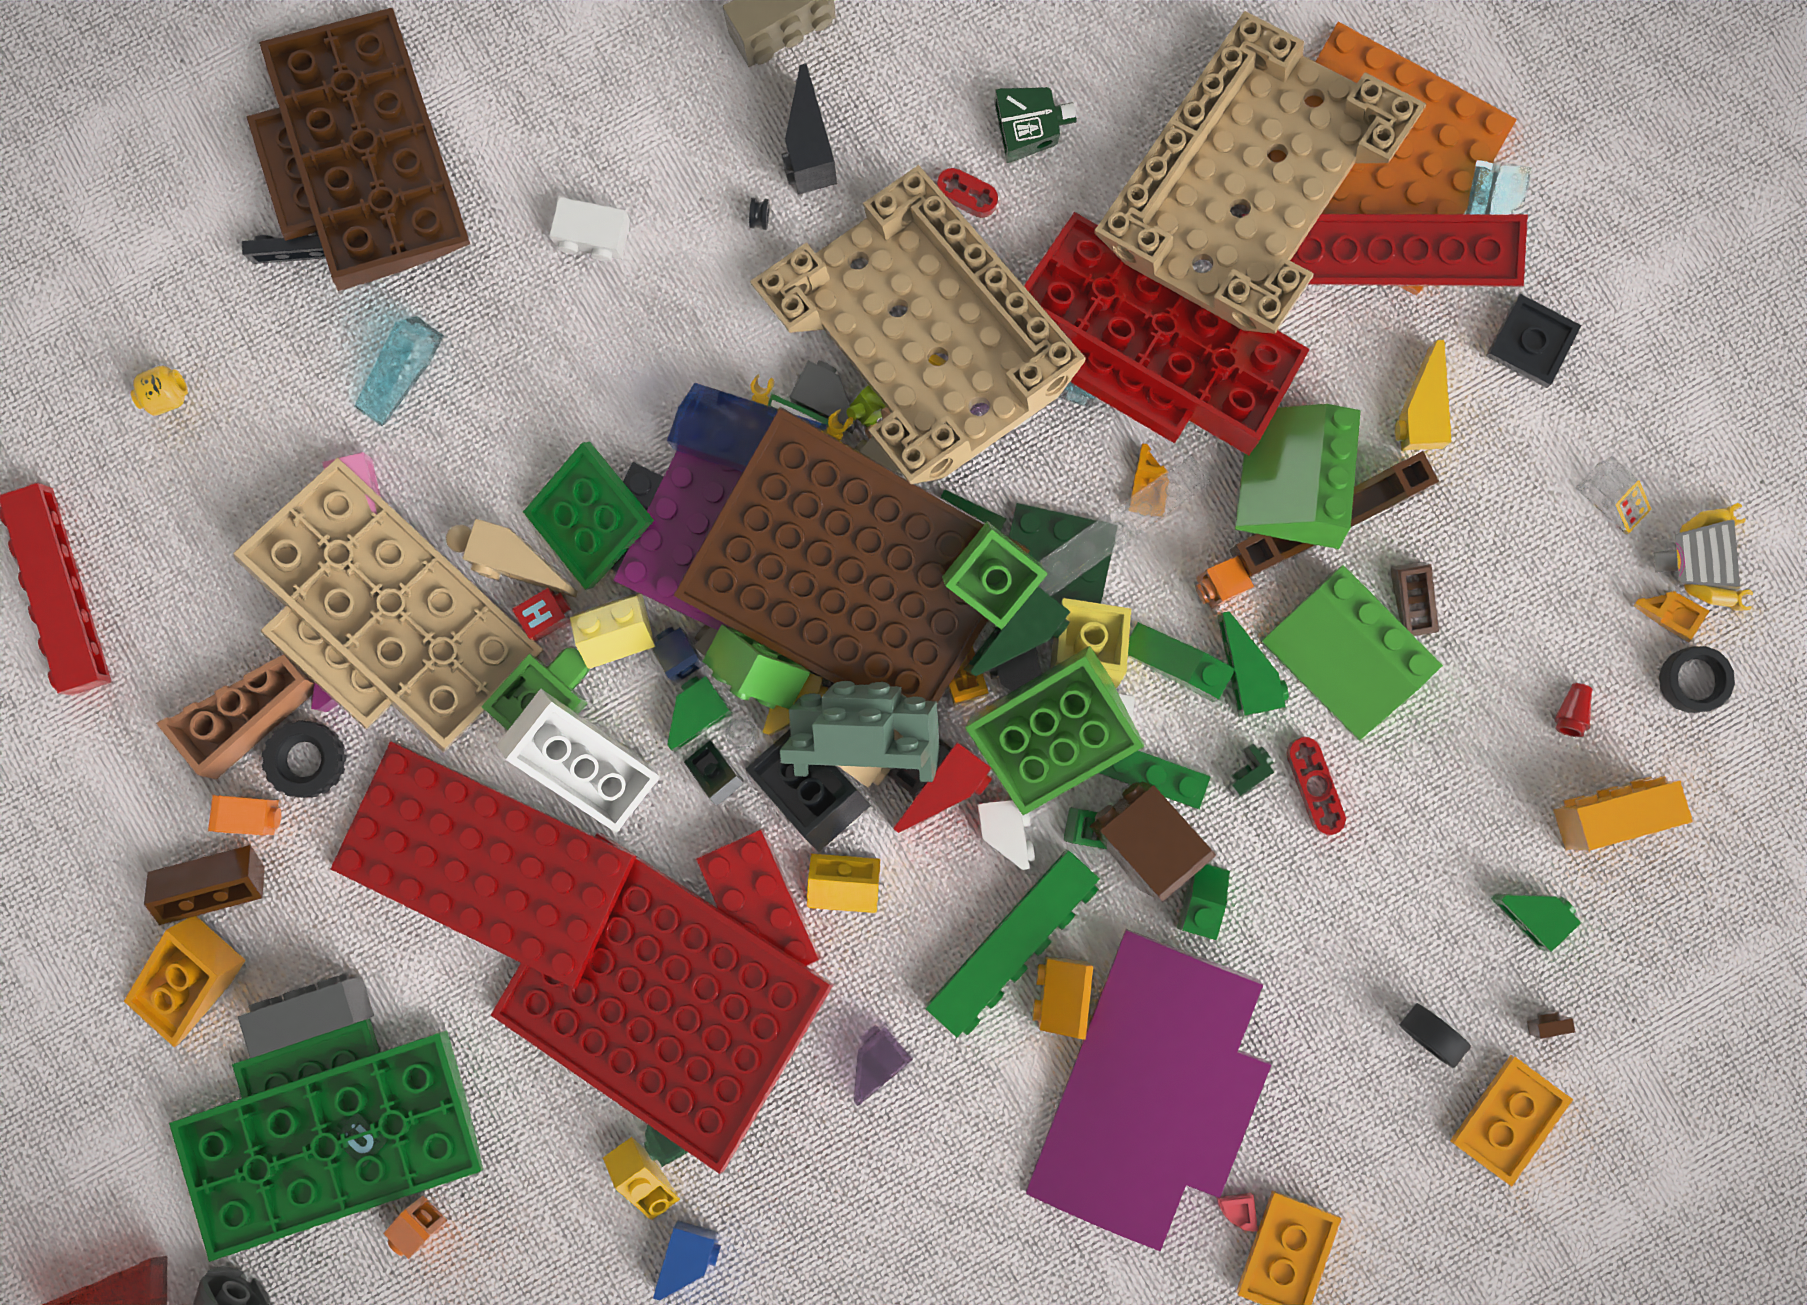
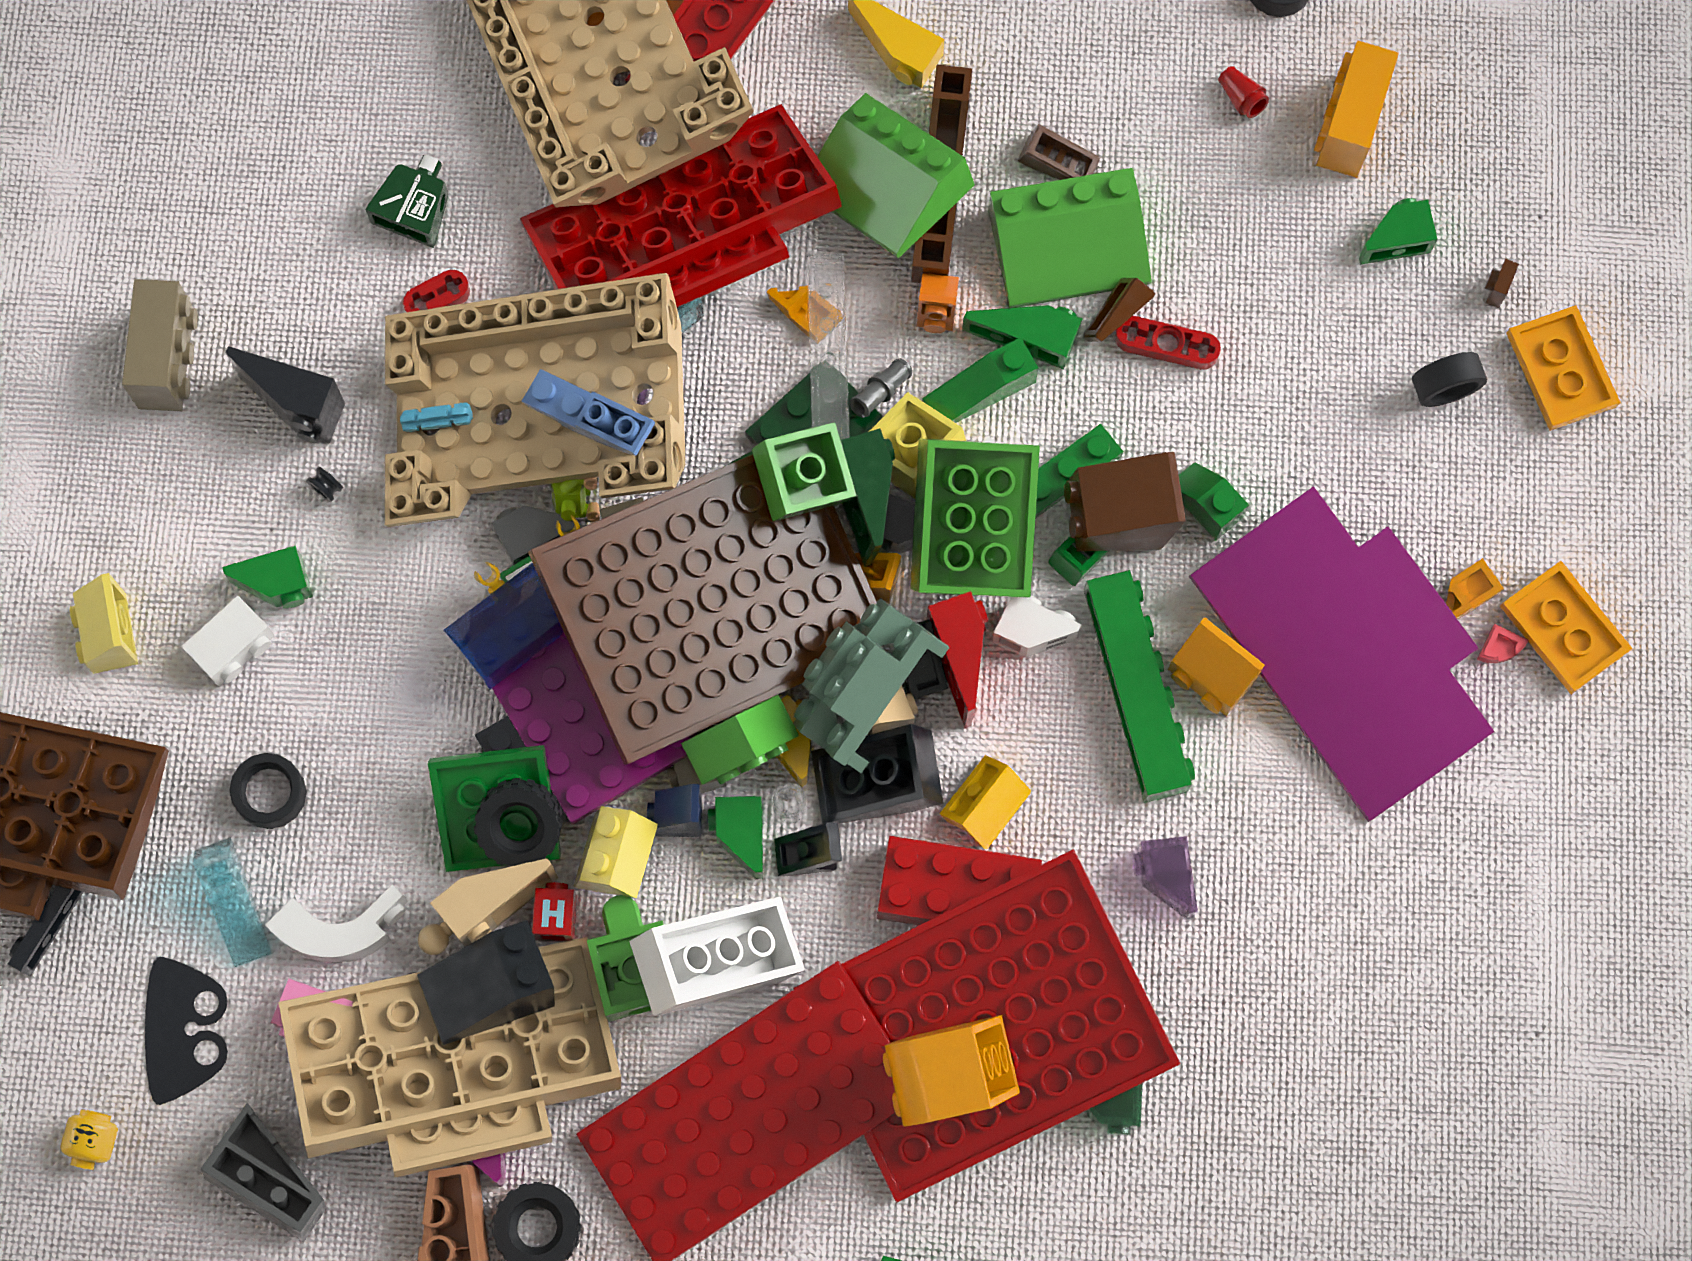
camera: 60 degrees left, 10 degrees down
(208, 535) = (263, 1177): none -> dark grey wedge
(293, 381) = (168, 1049): none -> black piece
(408, 447) = (338, 941): none -> white arch
(449, 602) = (488, 984): none -> black slope
(479, 319) = (250, 768): none -> black tyre
(540, 129) = (103, 626): none -> light yellow slope
(560, 548) = (526, 794): none -> black tyre
(589, 1005) = (951, 1071): none -> light orange brick
(640, 1179) = (1138, 1158): yellow slope -> none
(661, 228) = (273, 577): none -> green slope
(686, 1258) = (1239, 1164): blue slope -> none
(863, 260) = (436, 417): none -> medium azure axle
(930, 376) = (588, 413): none -> medium blue slope
(1121, 585) = (880, 388): none -> dark grey pin
(1247, 778) = (1122, 385): dark green bracket -> none
(1270, 1158) = (1472, 589): none -> light orange slope
(1316, 729) = (1122, 303): none -> reddish brown slope

